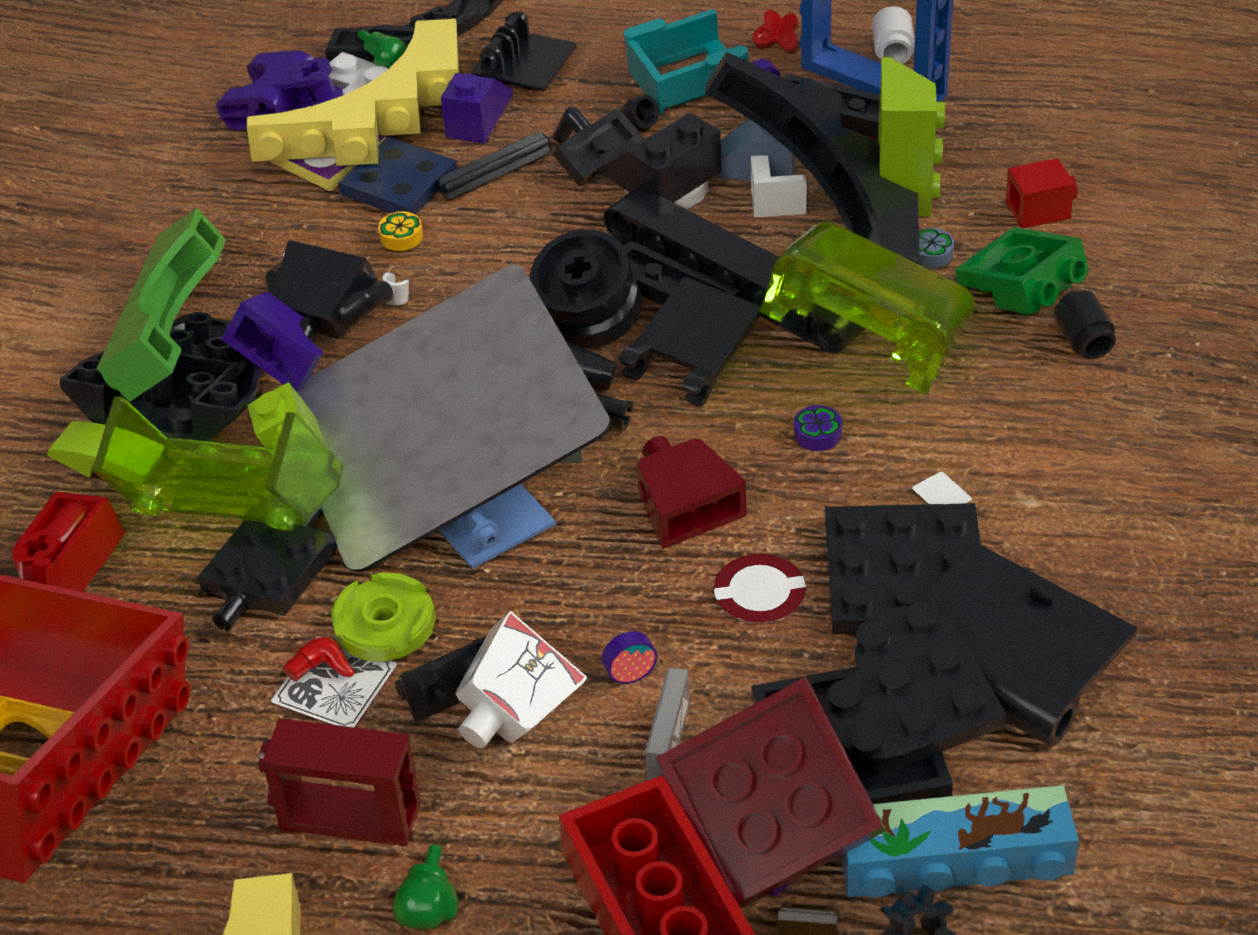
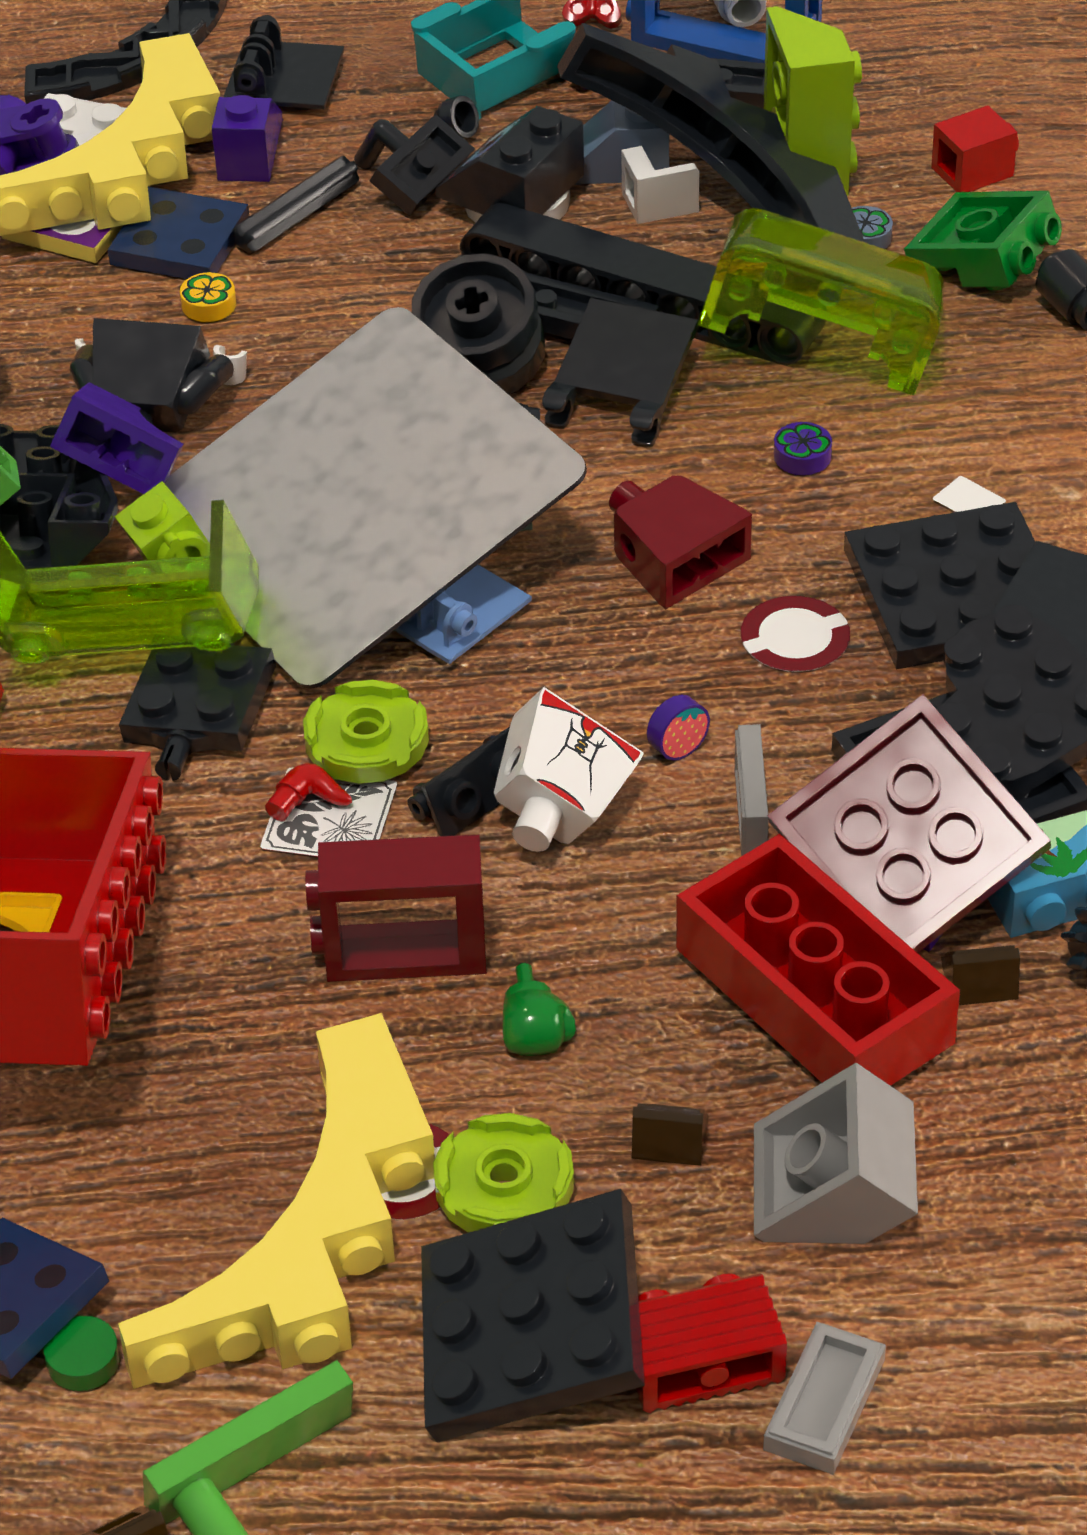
camera: 15 degrees left, 0 degrees up
(383, 48) = (108, 81): green piece -> none

